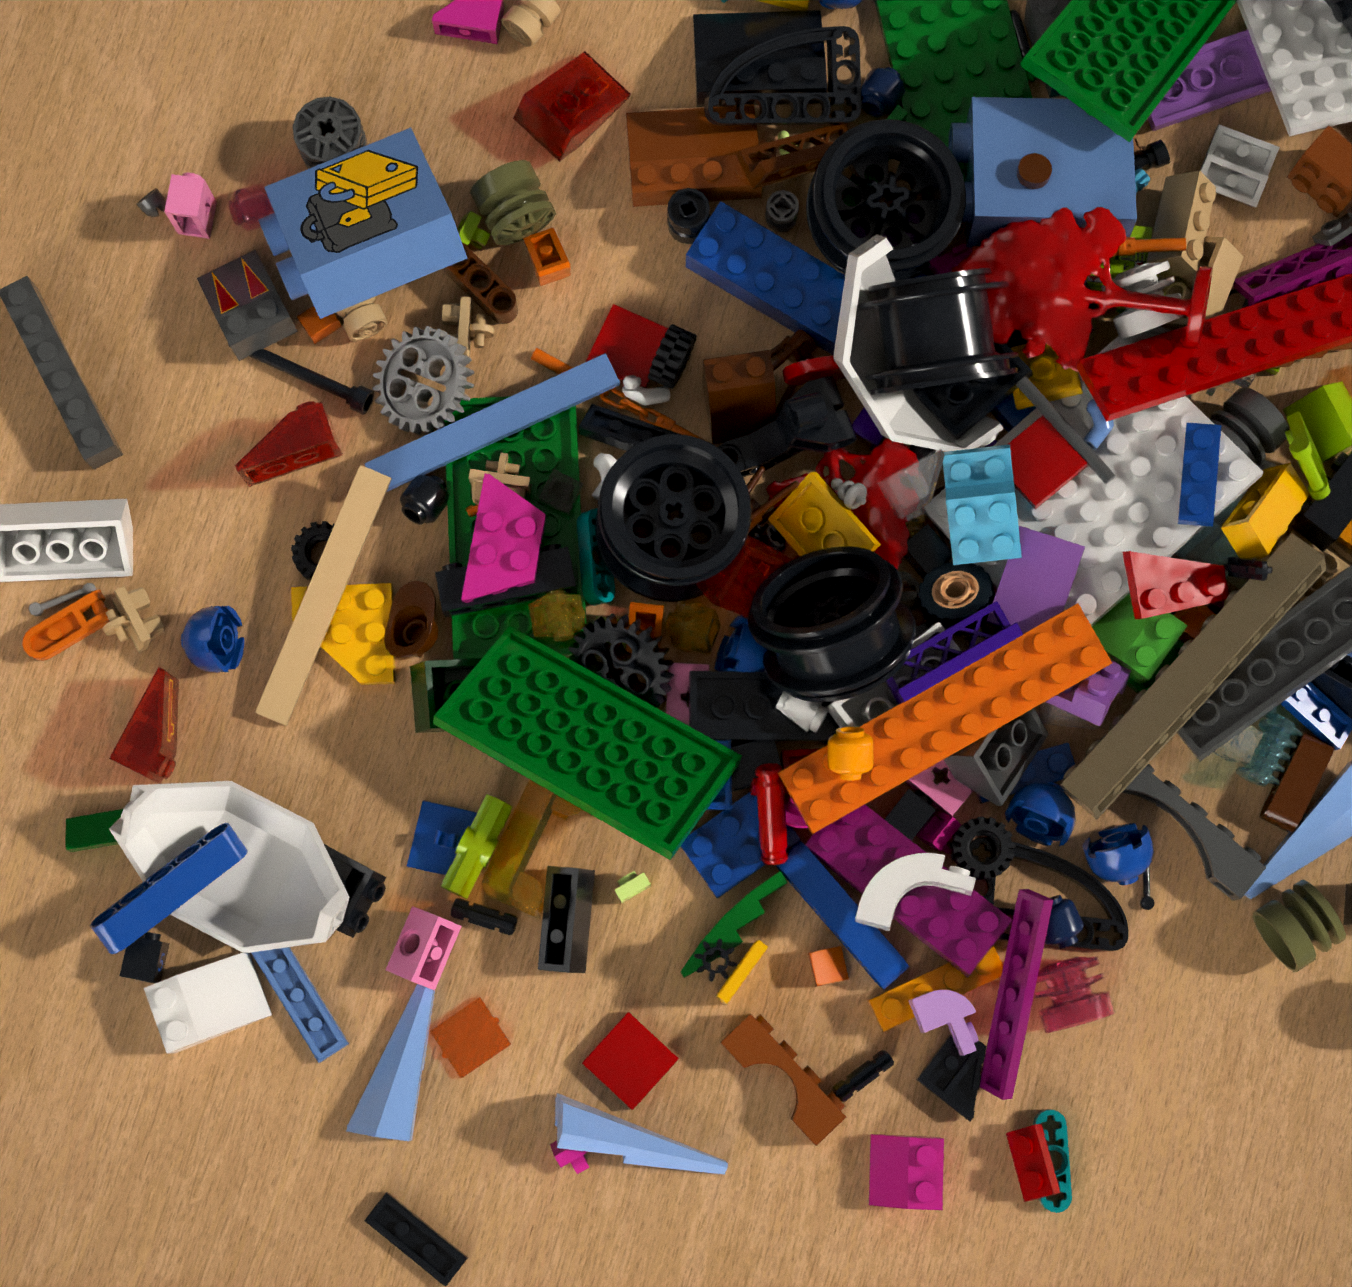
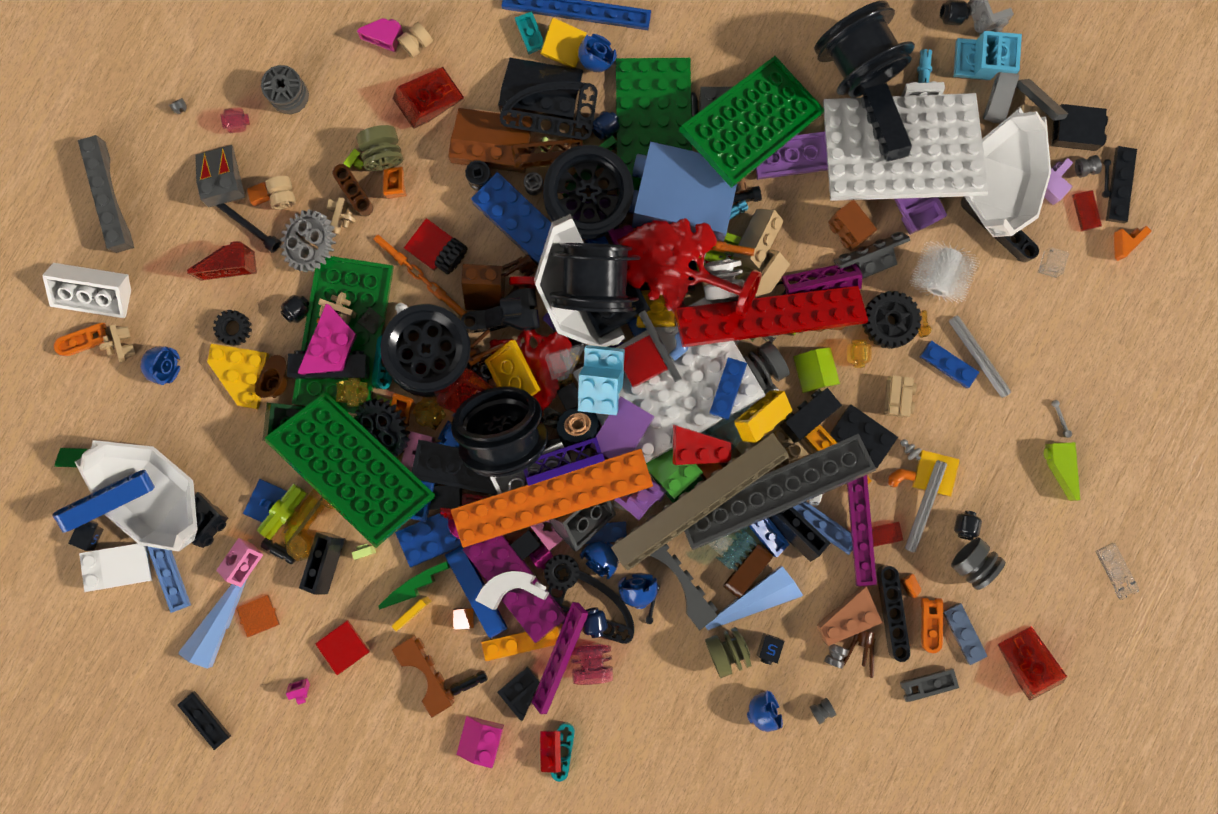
camera: 10 degrees right, 5 degrees up
(37, 609) = (68, 326): light grey hinge -> none
(151, 734) = (114, 410): clear red slope -> none
(190, 205) = (197, 112): bright pink brick -> none
(323, 595) = (225, 352): tan tile -> none
(361, 225) = (288, 144): medium blue brick -> none
(496, 422) = (341, 274): medium blue tile -> none
(596, 1131) = (315, 684): light blue wedge -> none
(617, 428) = (415, 292): black tile -> none
(642, 395) = (430, 274): white arm -> none
(720, 968) = (402, 602): black gear -> none
(771, 814) = (446, 530): red axle -> none
(804, 713) = (476, 479): white cone -> none
(850, 493) = (531, 358): light grey hair -> none
(850, 753) = (490, 508): light orange head -> none
(948, 1008) = (520, 657): lavender brick -> none
(1034, 171) = (673, 193): reddish brown tile -> none
(1238, 165) = (800, 209): white slope -> none
(1247, 568) = (742, 448): black axle -> none
(1305, 452) = (795, 388): lime plate -> none

